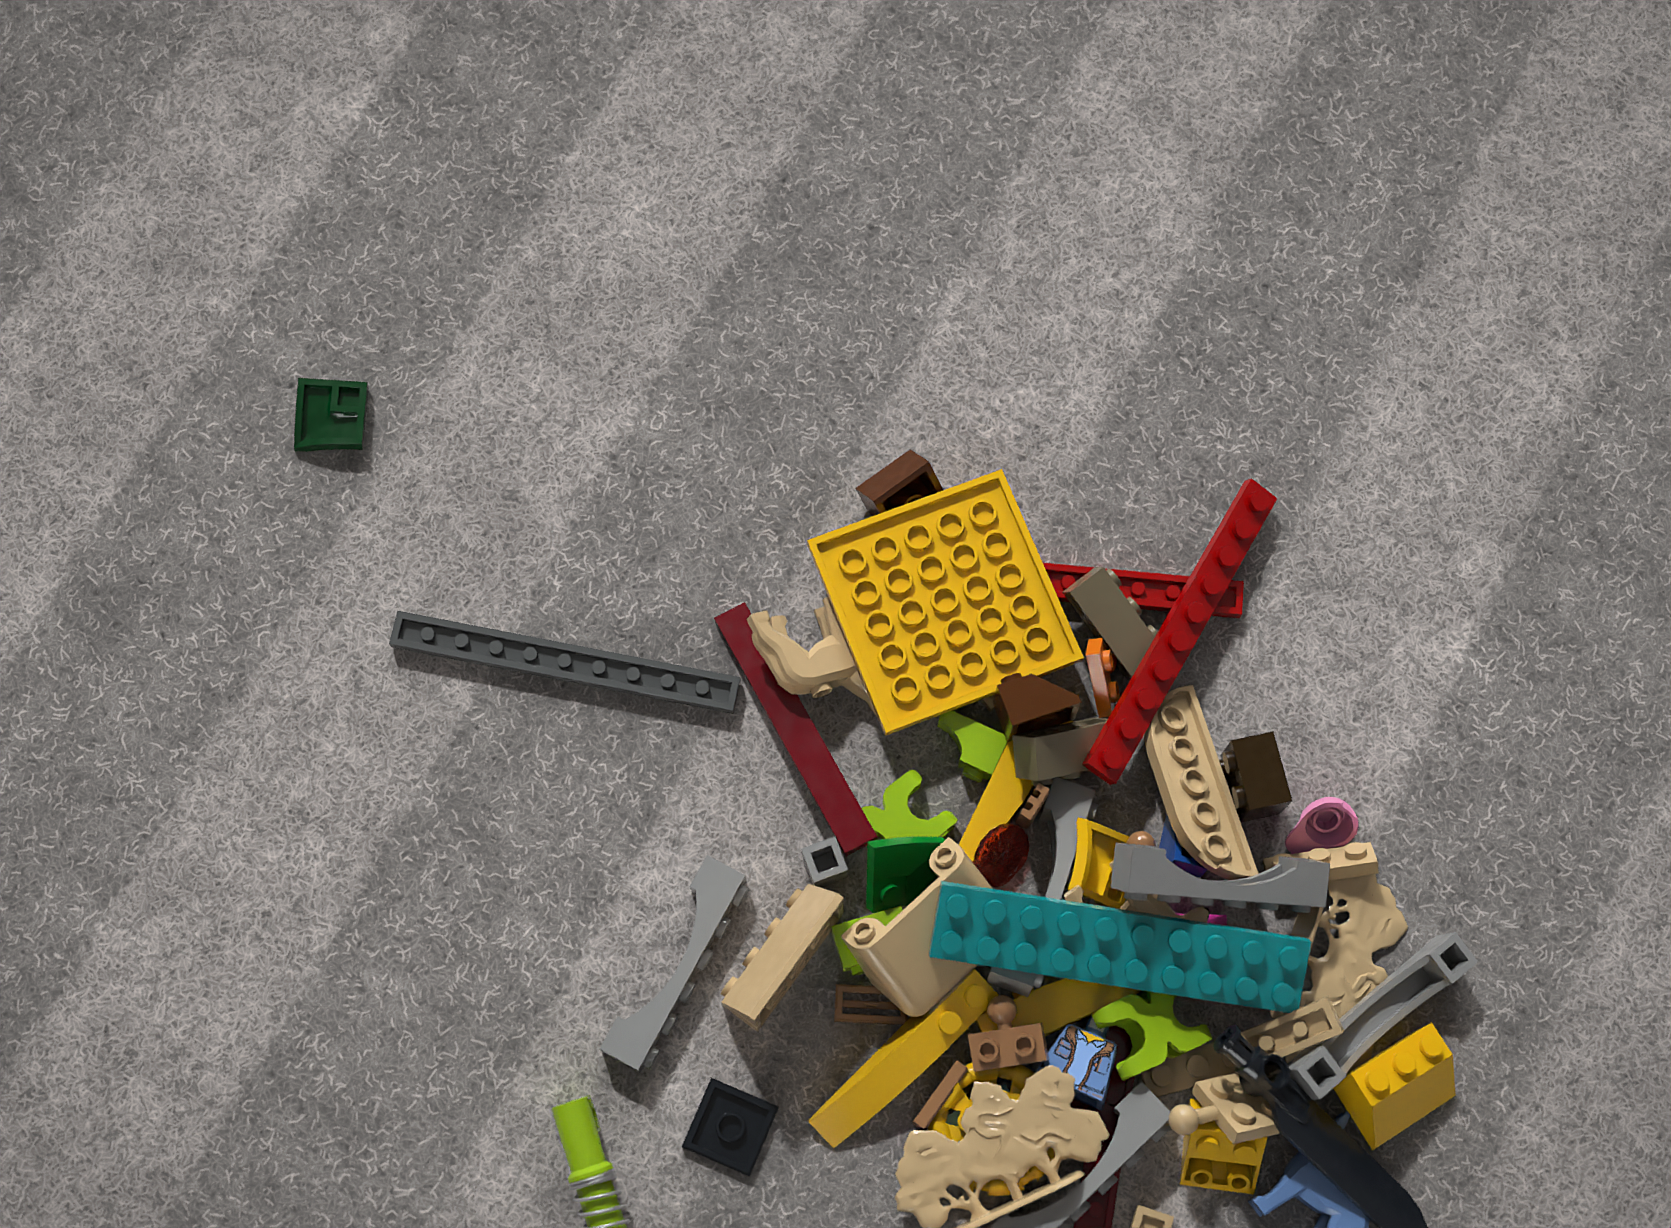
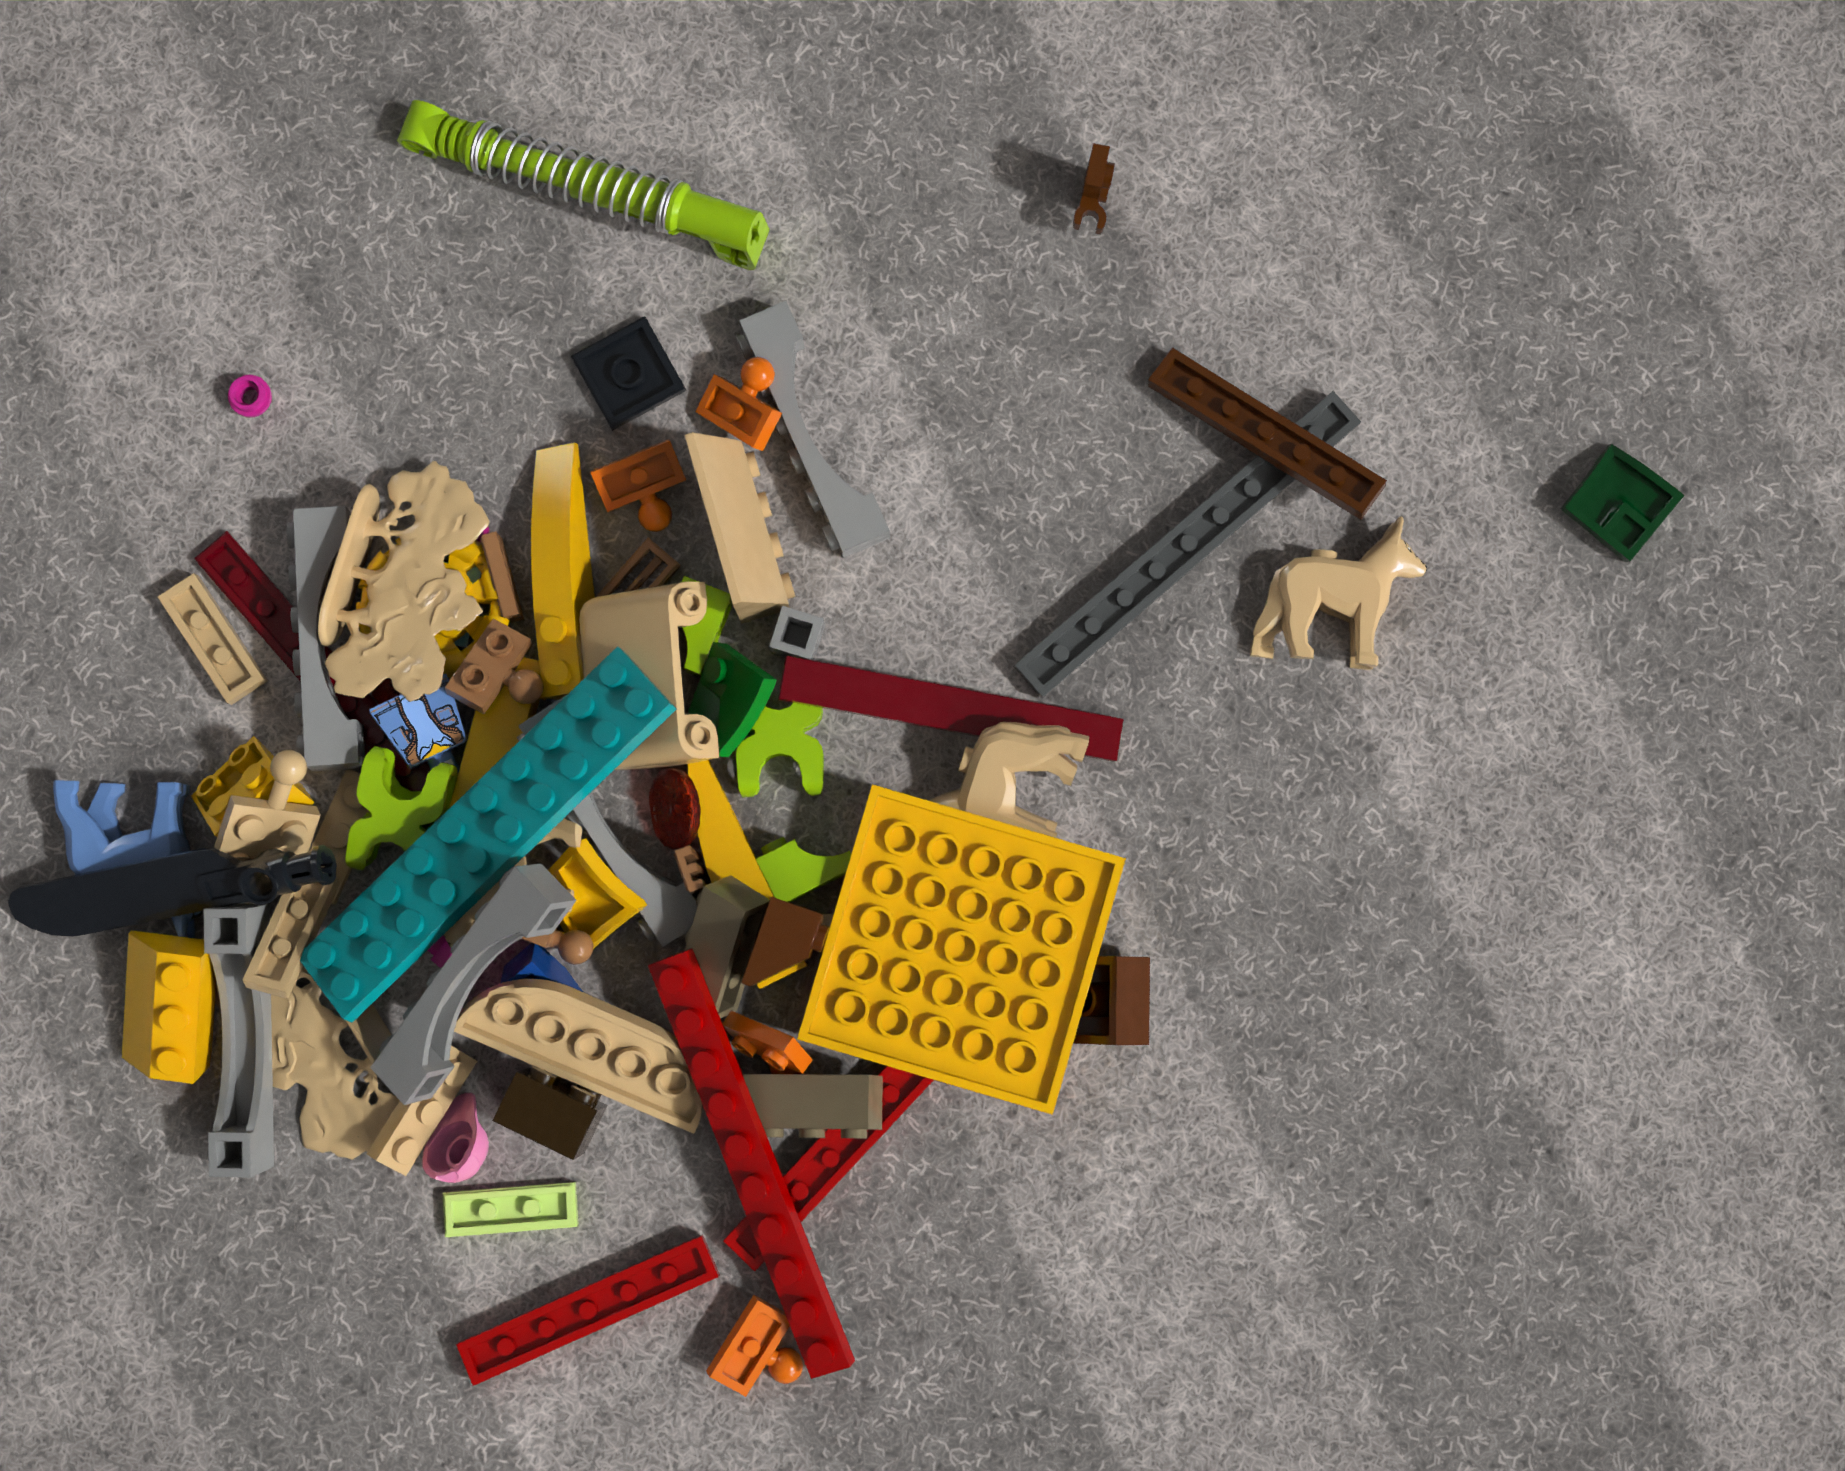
camera: 120 degrees right, 10 degrees up
(358, 901) = (1095, 188): none -> reddish brown plate
(452, 662) = (1267, 433): none -> reddish brown plate
(521, 544) = (1339, 588): none -> tan animal
(699, 1023) = (738, 408): none -> orange plate
(799, 1057) = (639, 479): none -> orange plate
(1288, 549) = (753, 1346): none -> orange plate
(1334, 764) = (510, 1209): none -> yellowish green tile
(1352, 666) = (587, 1309): none -> red plate

